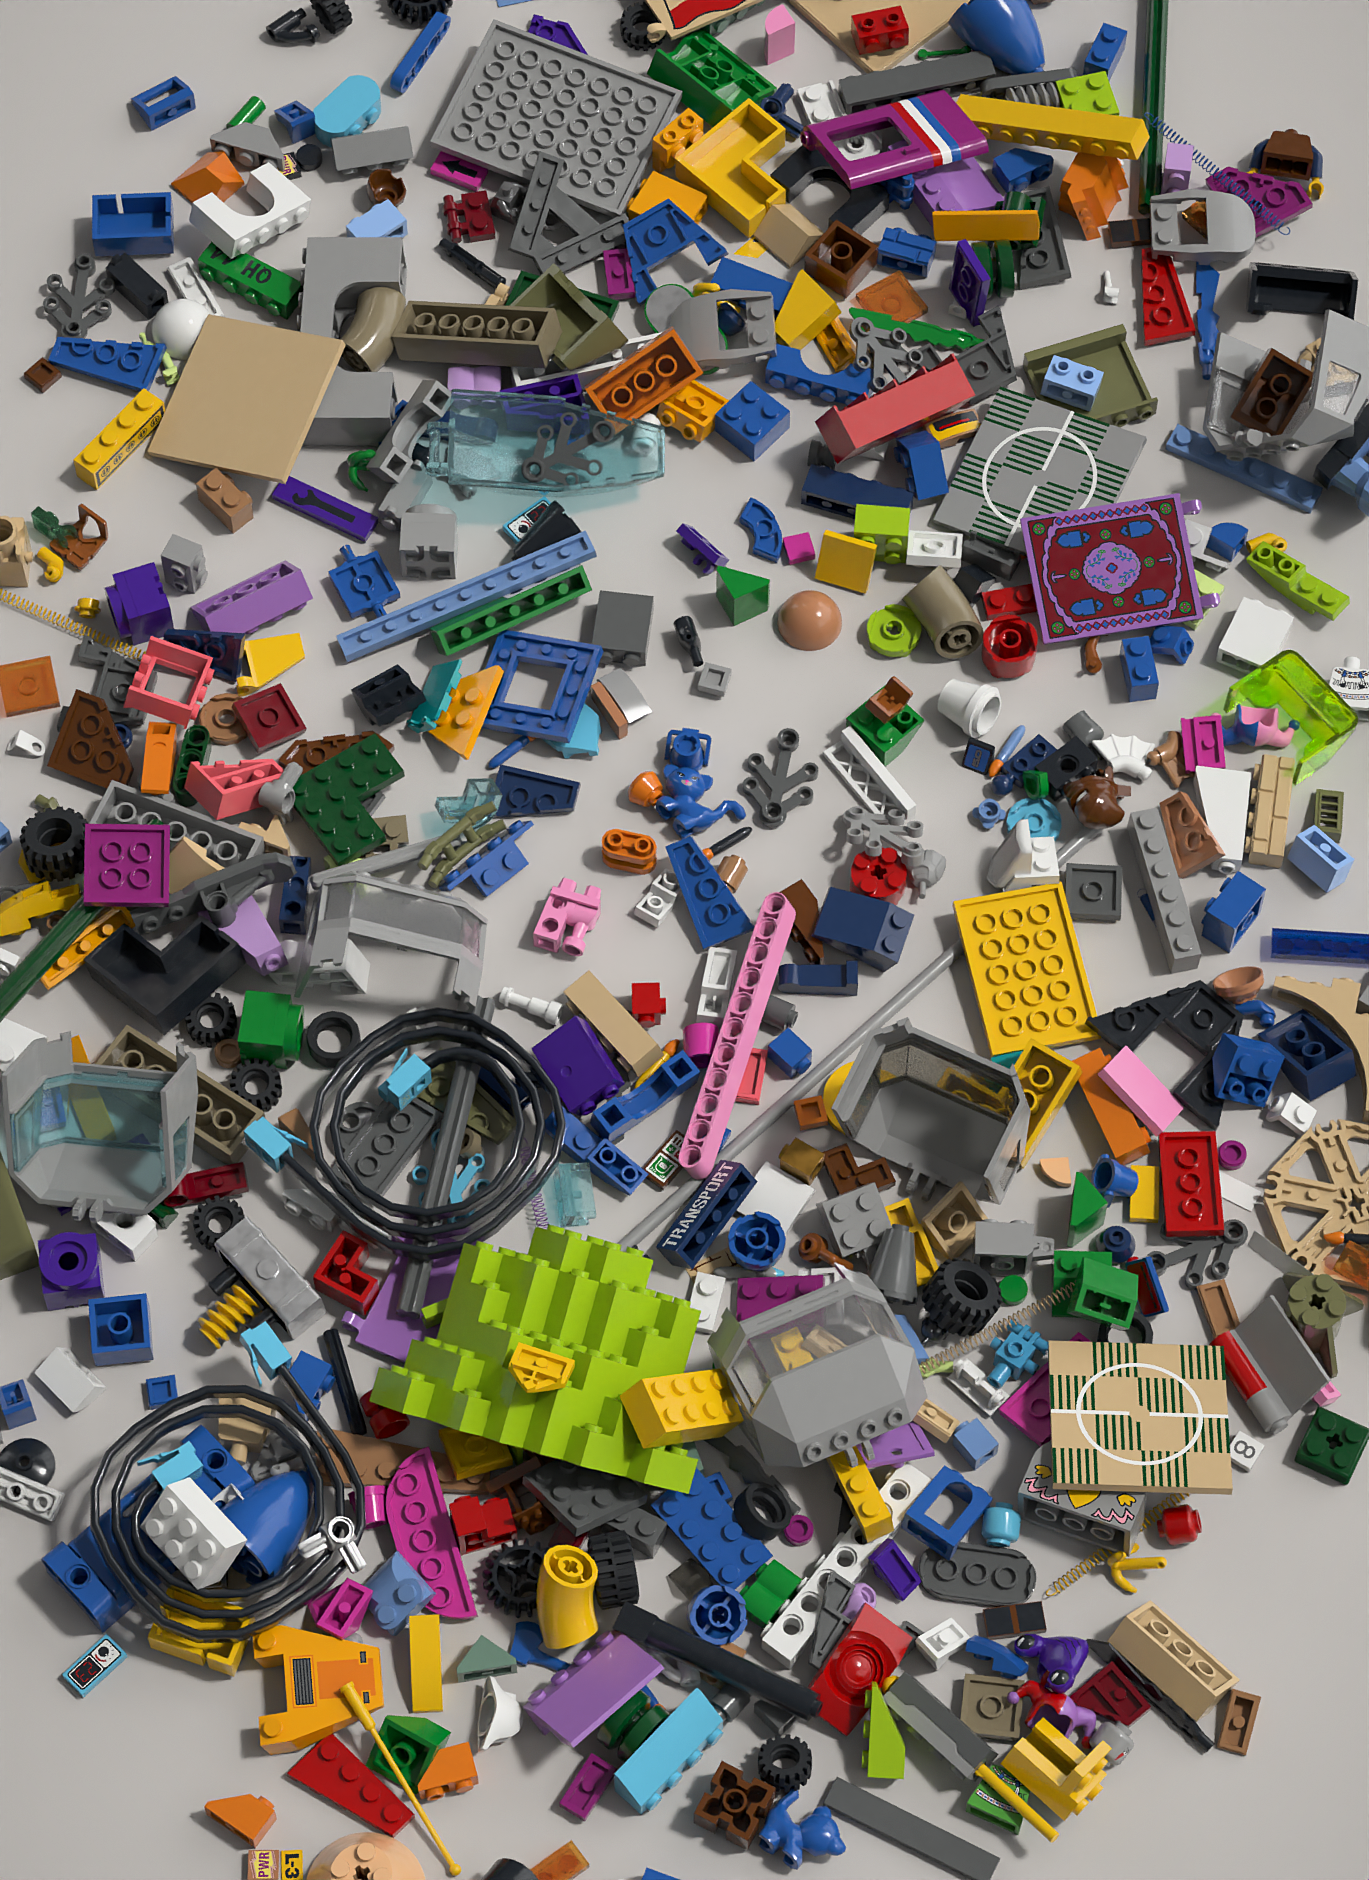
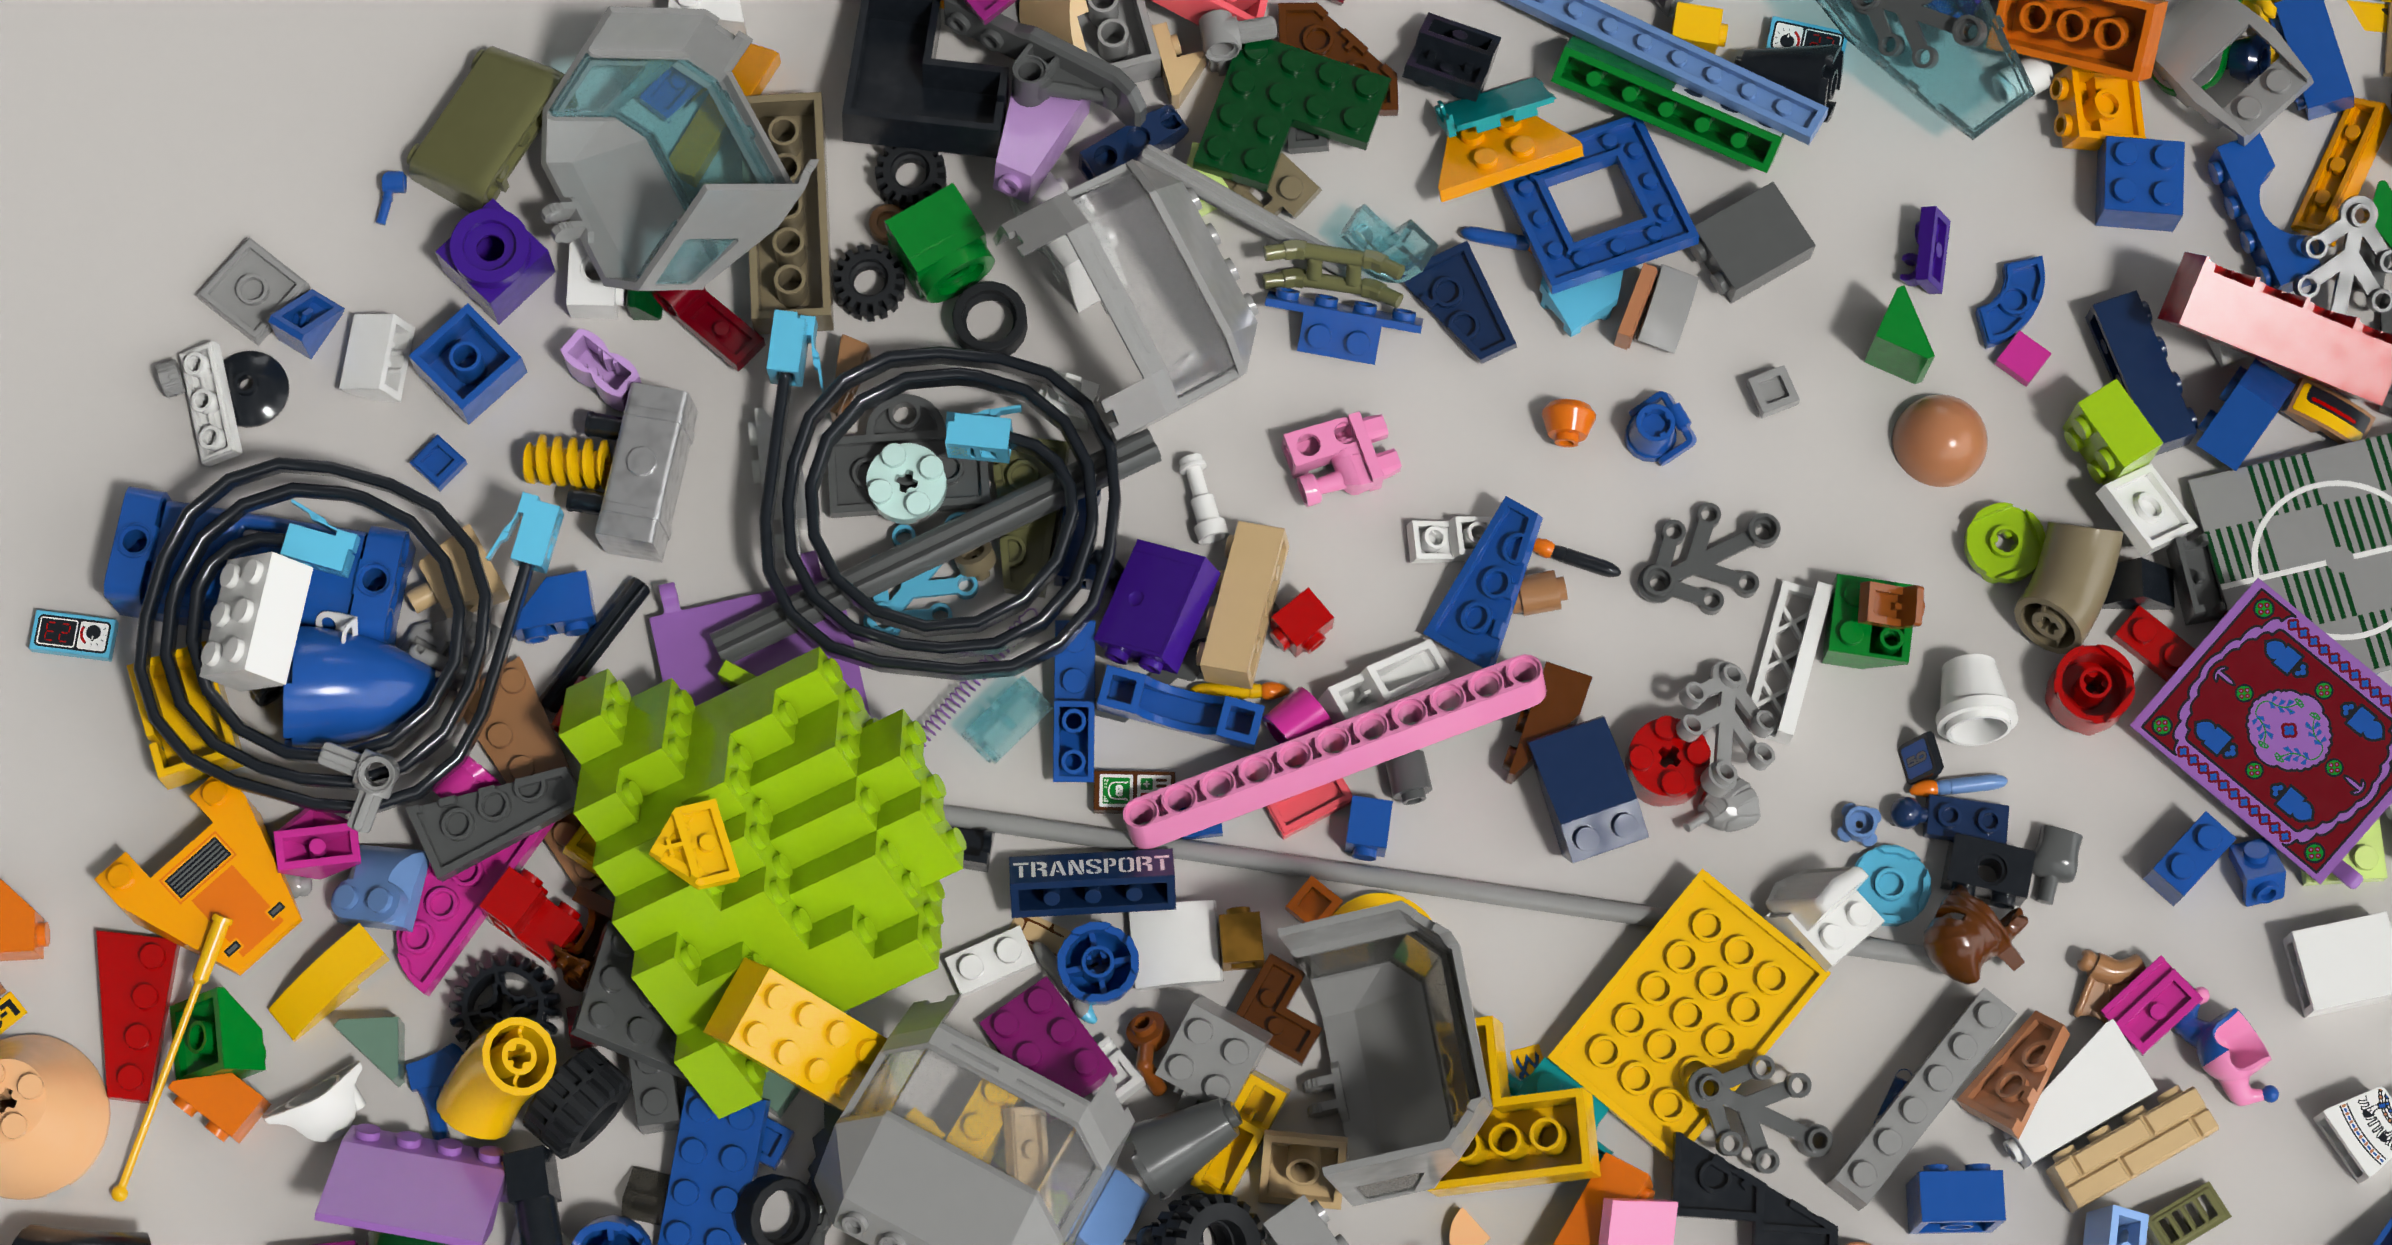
camera: 50 degrees right, 10 degrees up
(193, 1259) = (597, 368): none -> lavender brick
(210, 1210) = (683, 348): black tyre -> none
(341, 1275) = (709, 542): red brick -> none
(389, 1161) = (896, 462): none -> light aqua plate
(409, 1499) = (479, 824): none -> dark grey wing
(477, 562) = (1699, 26): none -> yellow brick
(629, 851) = (1475, 461): orange brick -> none
(686, 788) = (1606, 463): blue animal -> none
(689, 639) = (1799, 325): black piece -> none
(804, 313) = (2328, 134): yellow slope -> none
(819, 979) = (1489, 790): dark blue leg -> none
(820, 454) = (2157, 288): dark grey wheel -> none
(845, 561) = (2042, 422): yellow tile -> none
(1036, 784) = (1936, 850): green tile -> none
(1092, 659) = (2158, 798): dark orange piece -> none
(1094, 891) = (1855, 1018): dark grey plate -> none
(1106, 975) = (1752, 1111): none -> dark grey plant
(1126, 755) = (2065, 926): white arm -> none
(1305, 698) = (2312, 1085): clear neon green windscreen -> none

